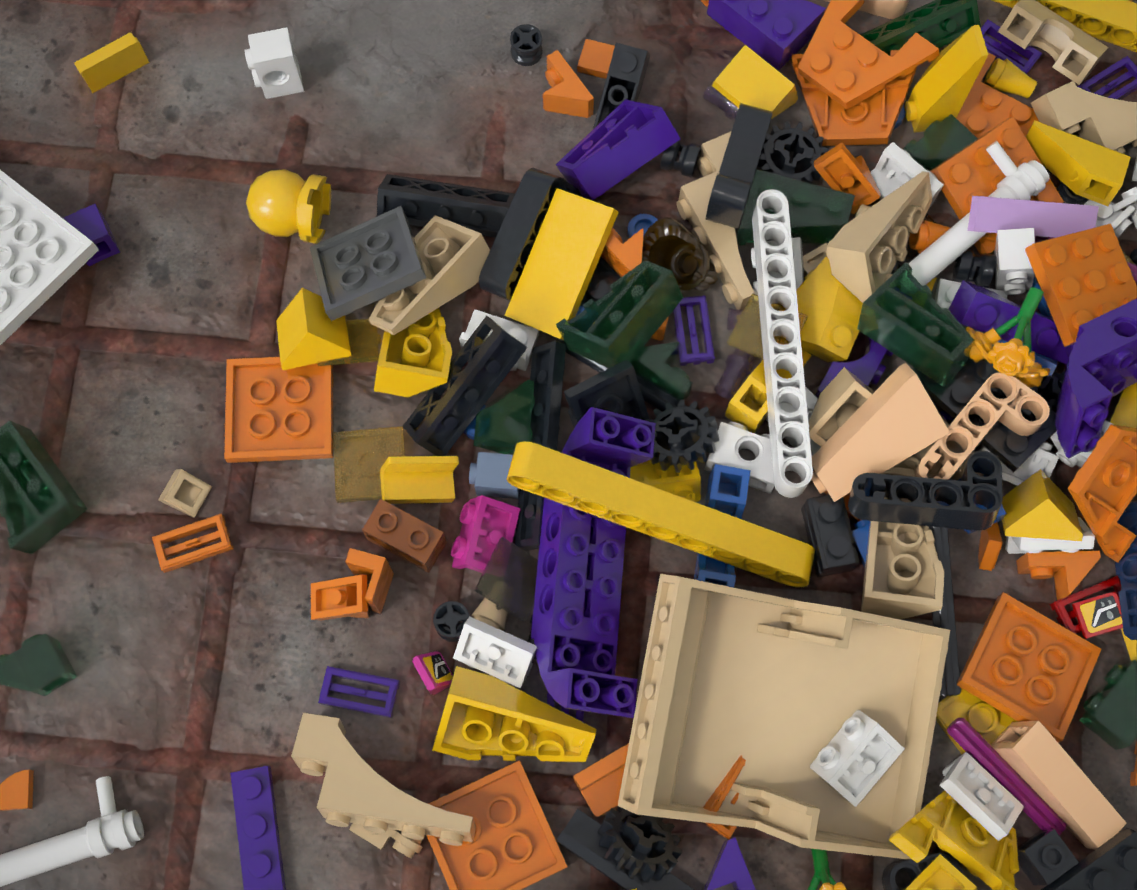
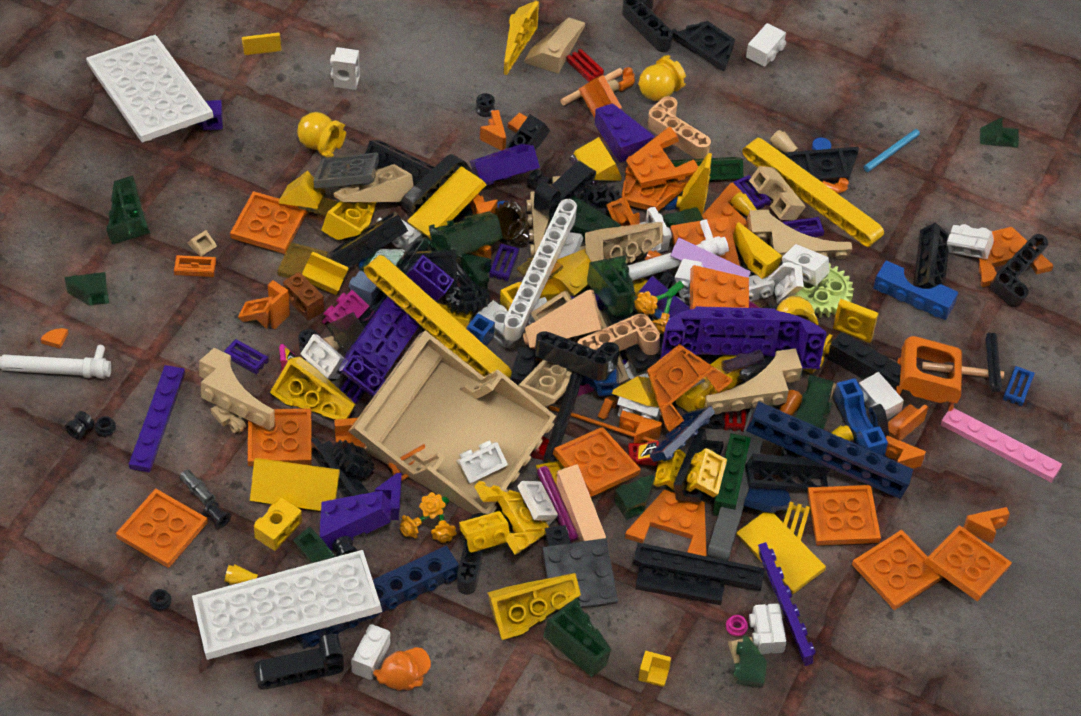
camera: 20 degrees right, 20 degrees down
(1022, 583) = (602, 424): none -> orange axle

